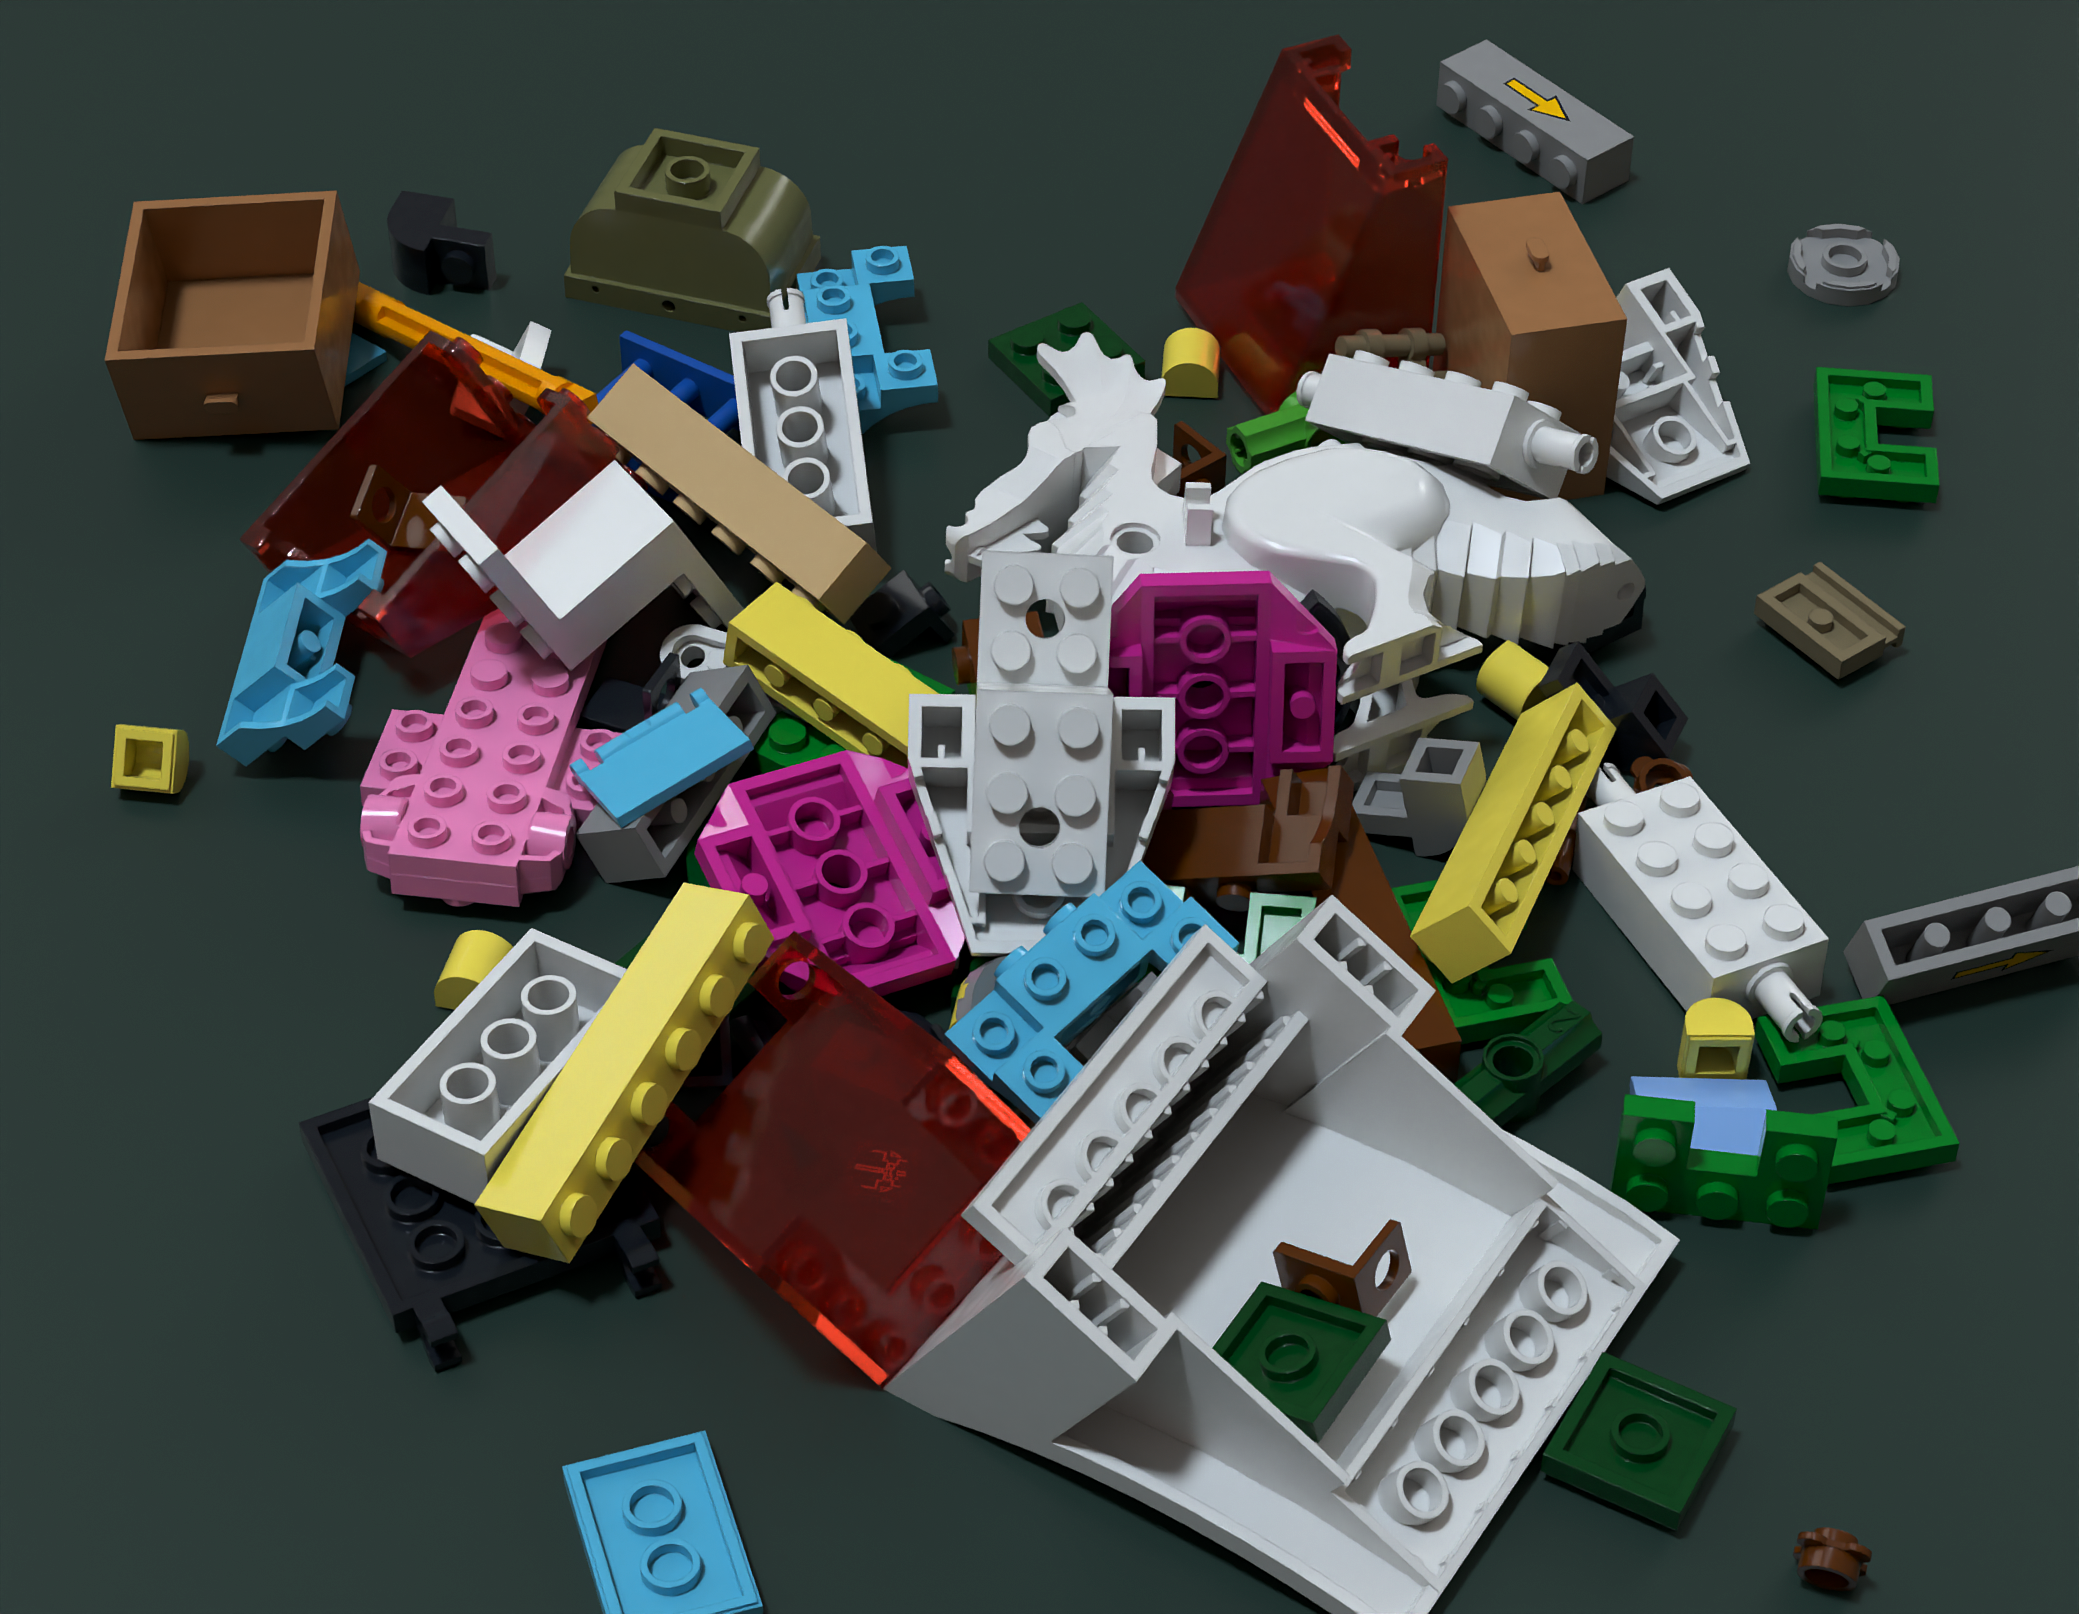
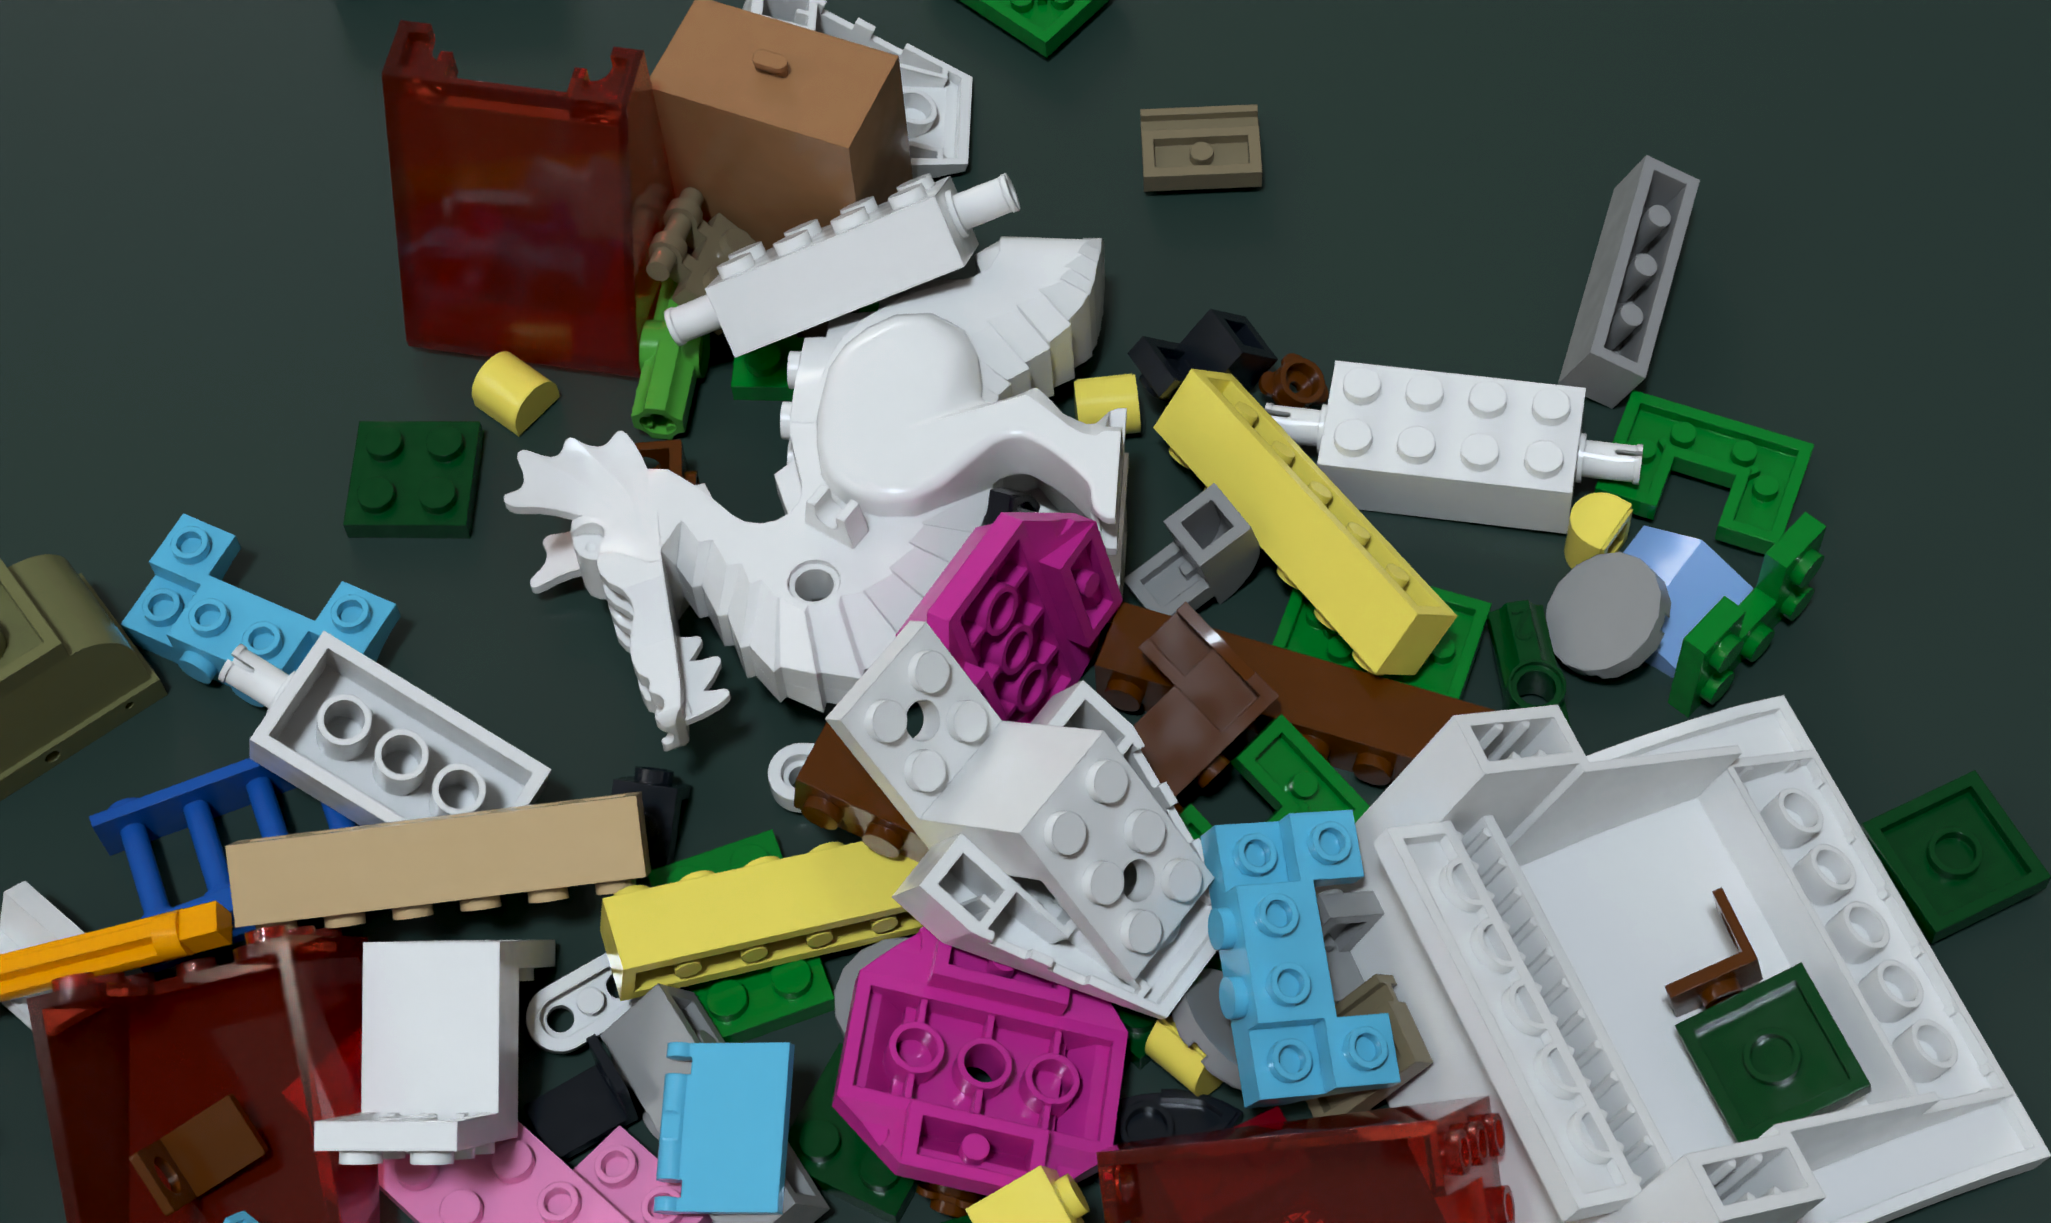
camera: 50 degrees left, 15 degrees up
(1643, 1068) = (1607, 615): none -> light grey tile

